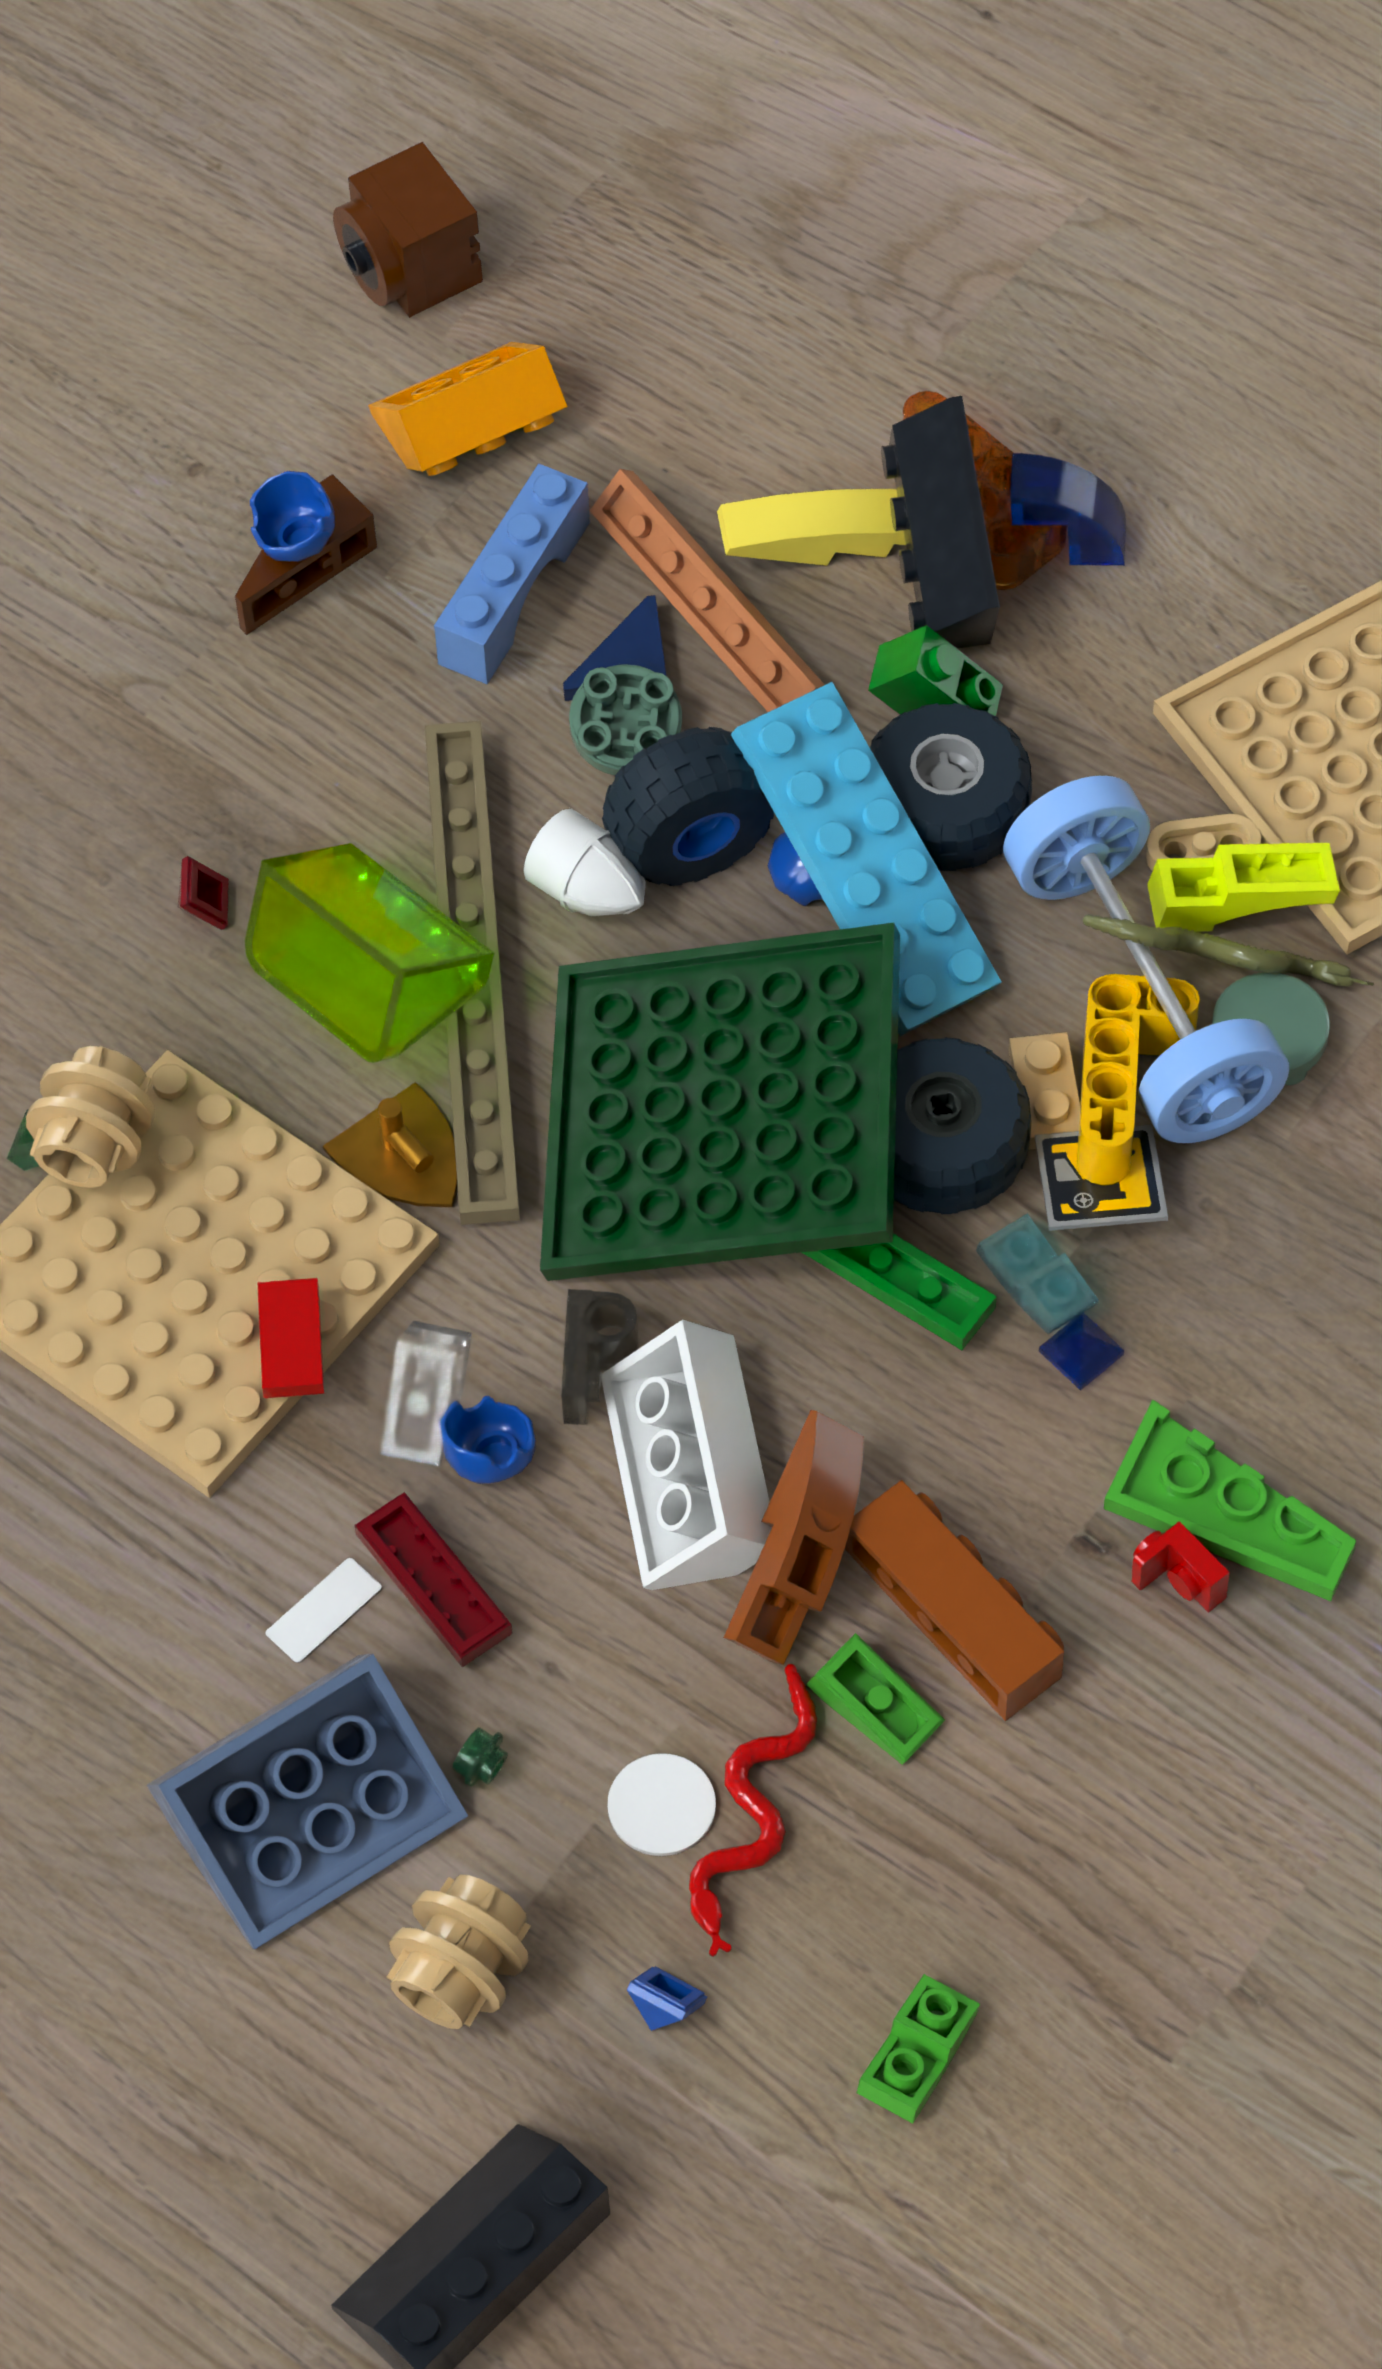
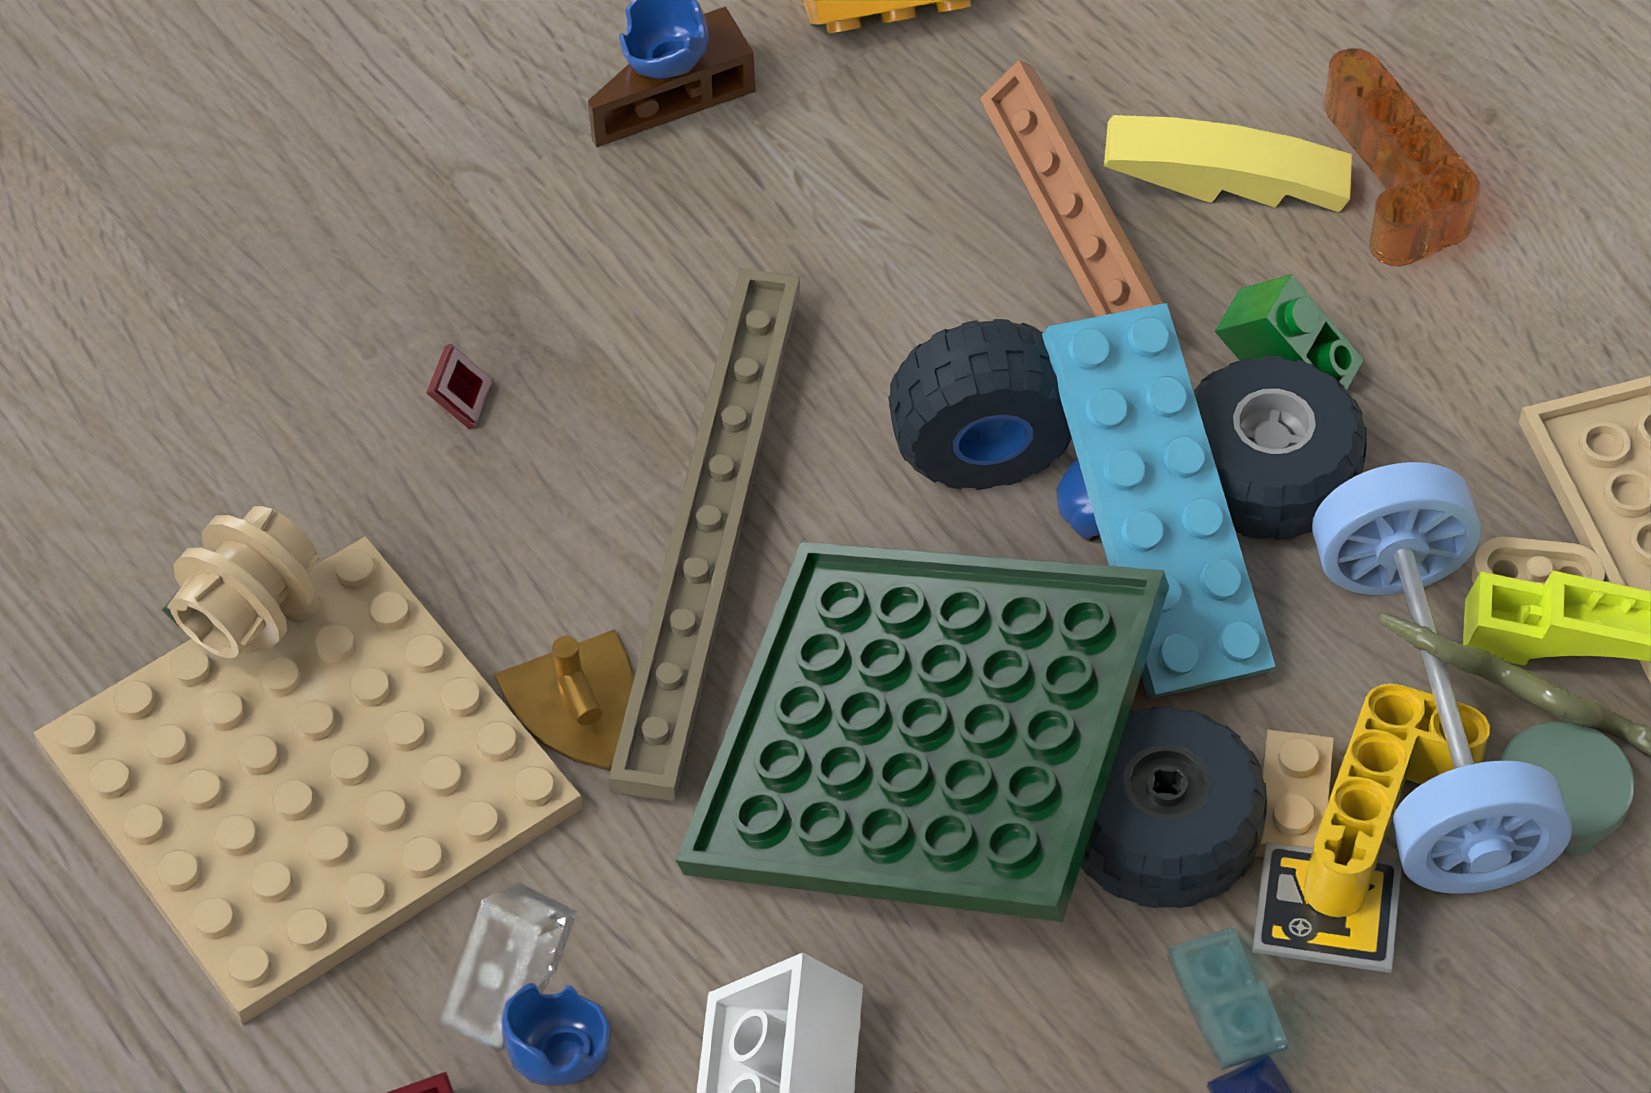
camera: 15 degrees right, 5 degrees down
(290, 1338) = (379, 870): red tile -> none
(360, 949) = (594, 476): clear neon green windscreen -> none
(485, 609) = (833, 174): medium blue arch -> none
(583, 867) = (855, 444): white helmet -> none
(591, 1352) = (697, 963): clear smoke plate -> none
(621, 713) = (944, 292): sand green tile -> none
(632, 643) = (971, 252): dark blue tile -> none
(914, 1286) = (1085, 979): green plate -> none
(942, 525) = (1337, 179): black slope -> none
(1065, 494) = (1476, 174): clear blue brick -> none

